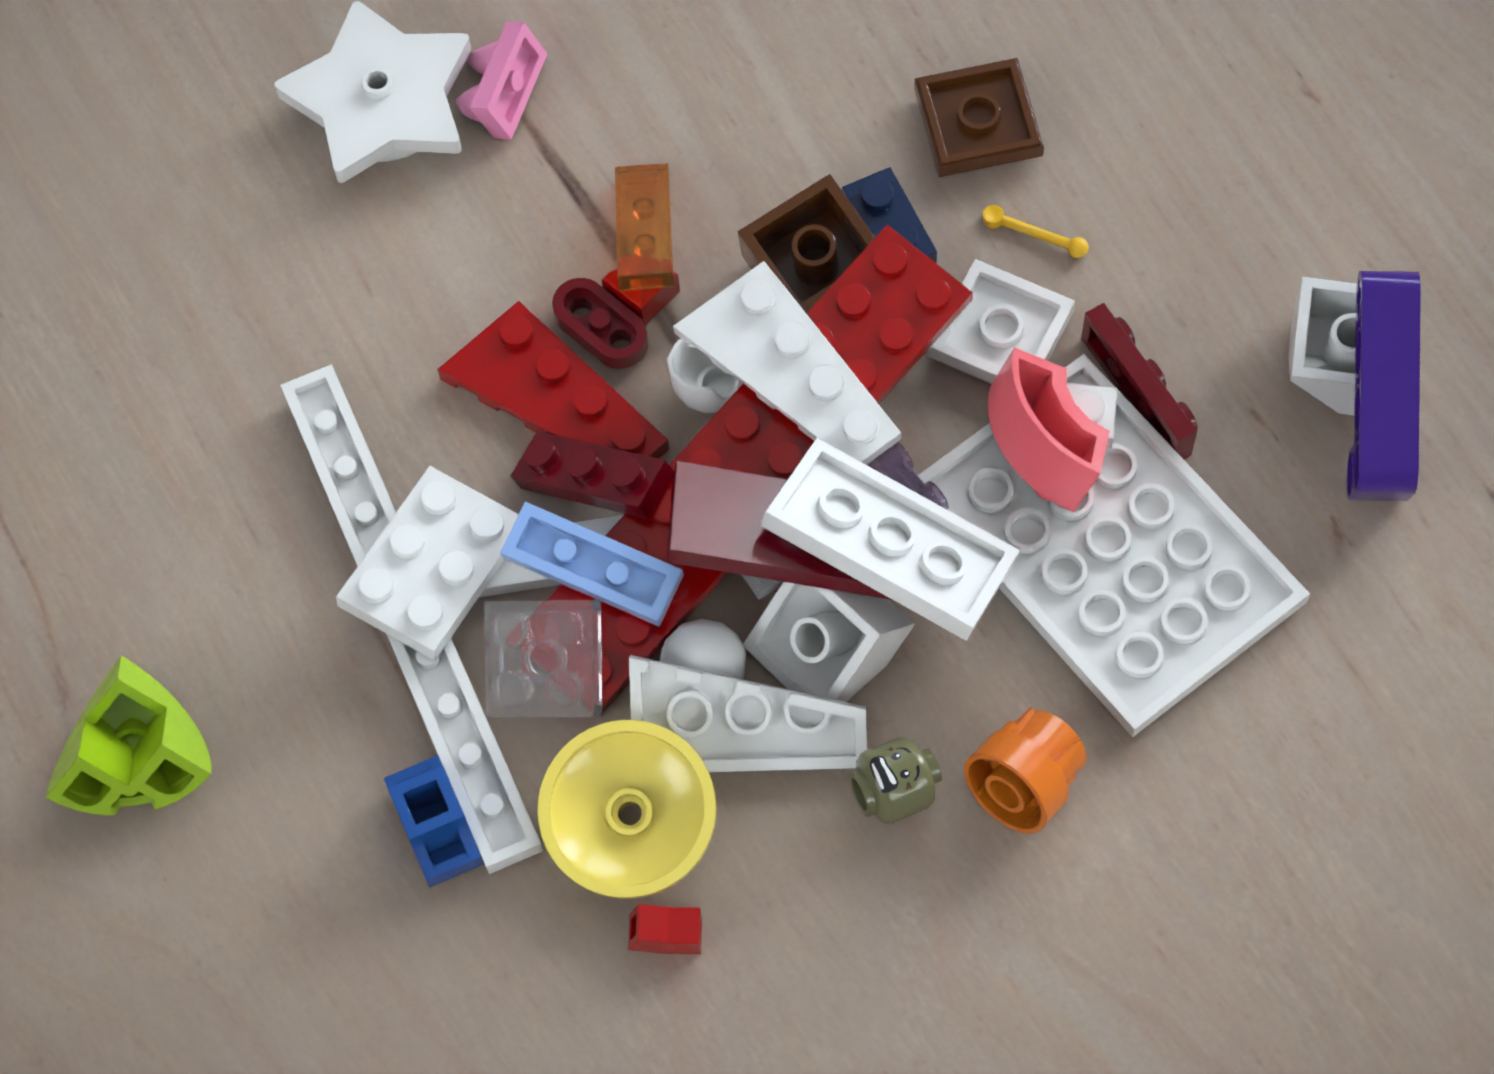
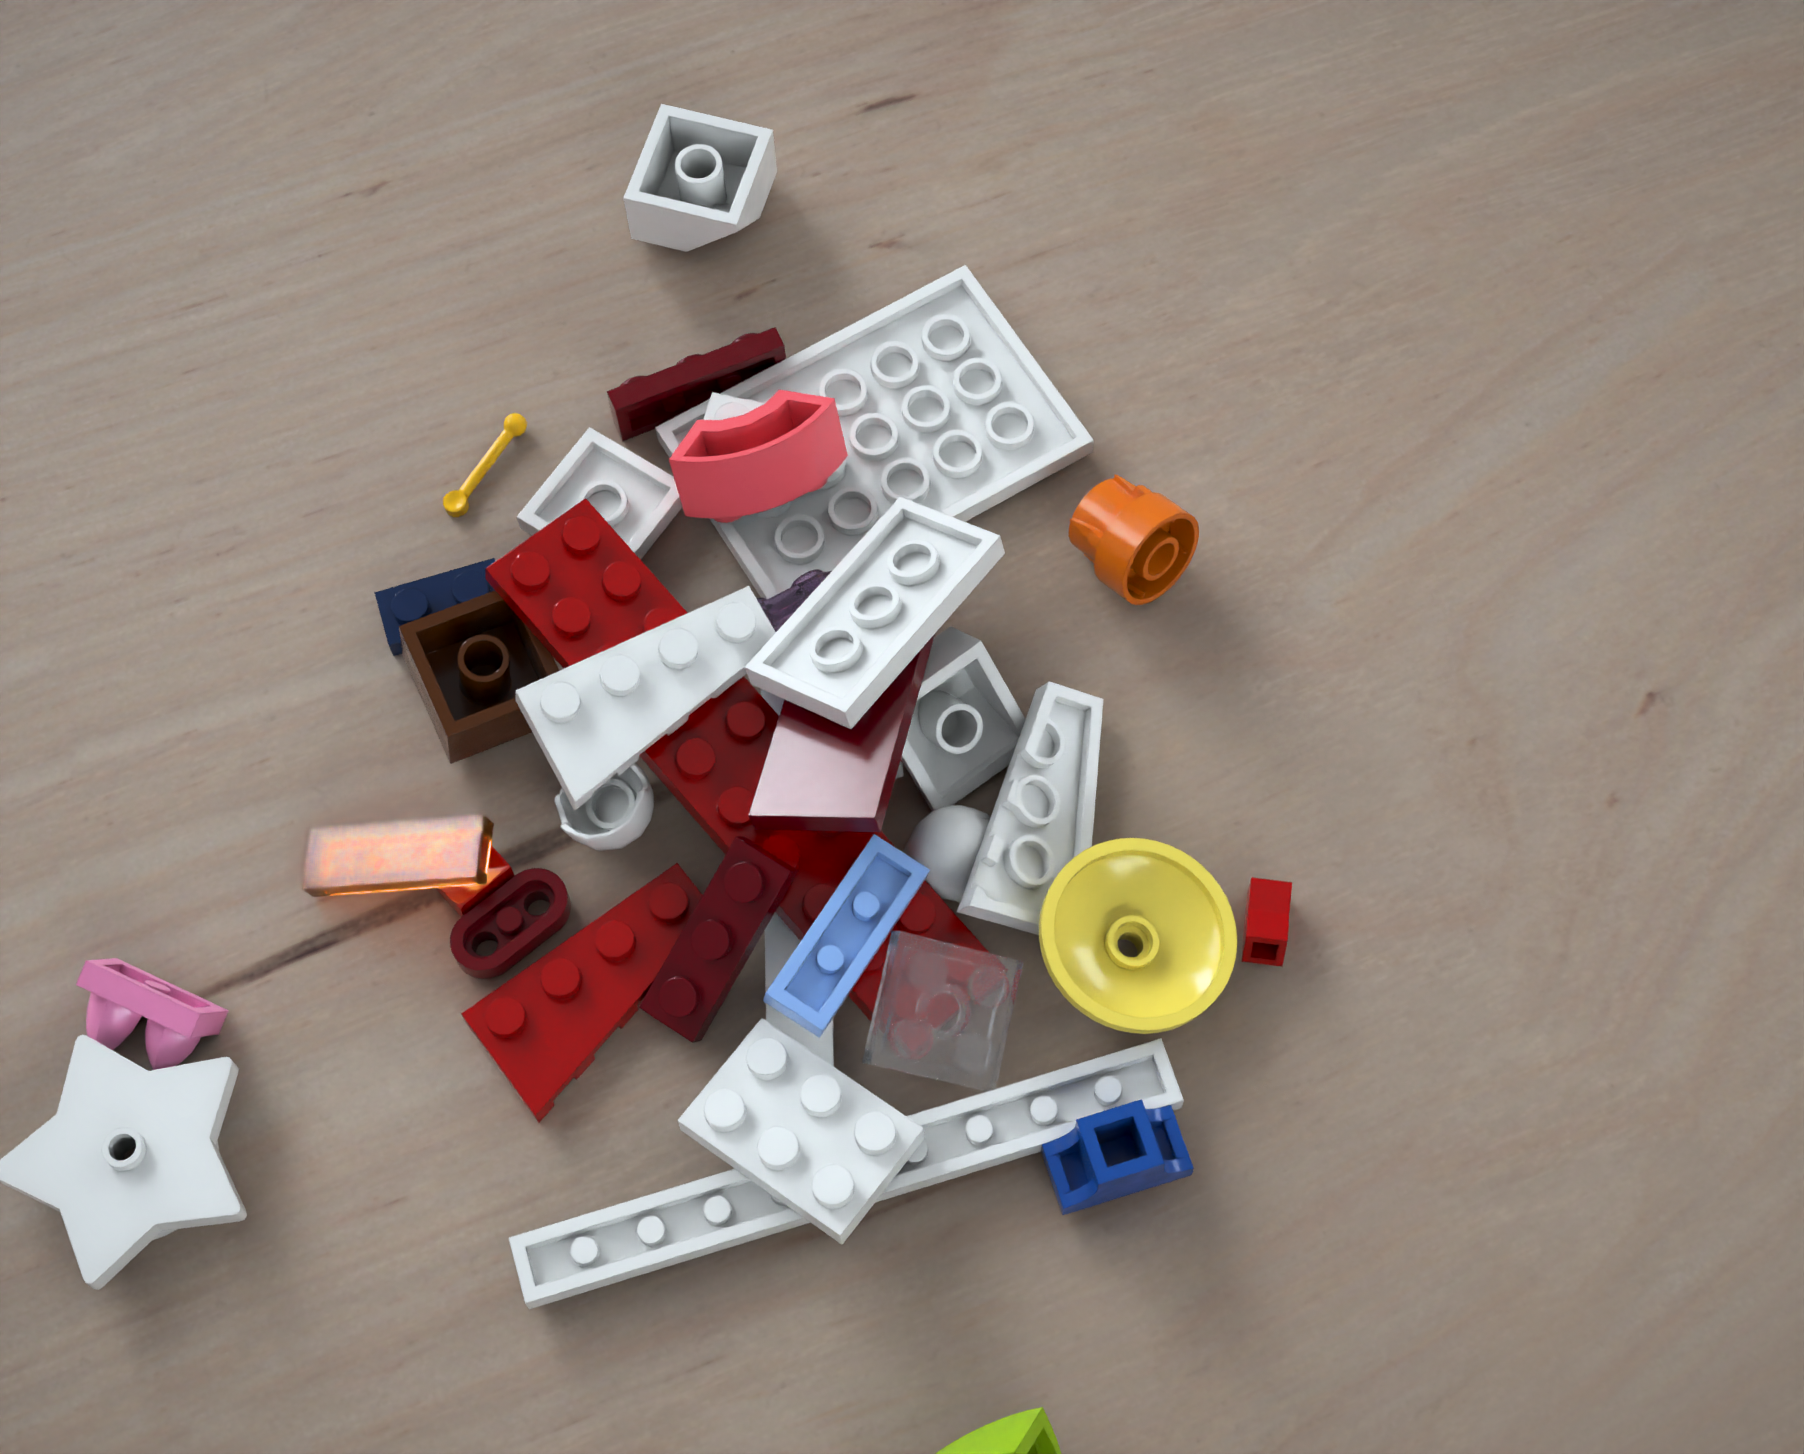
camera: 85 degrees left, 0 degrees up
(895, 780) = (1125, 669): olive head -> none
(978, 117) = (331, 496): reddish brown plate -> none
(1387, 387) = (774, 137): dark purple beam -> none

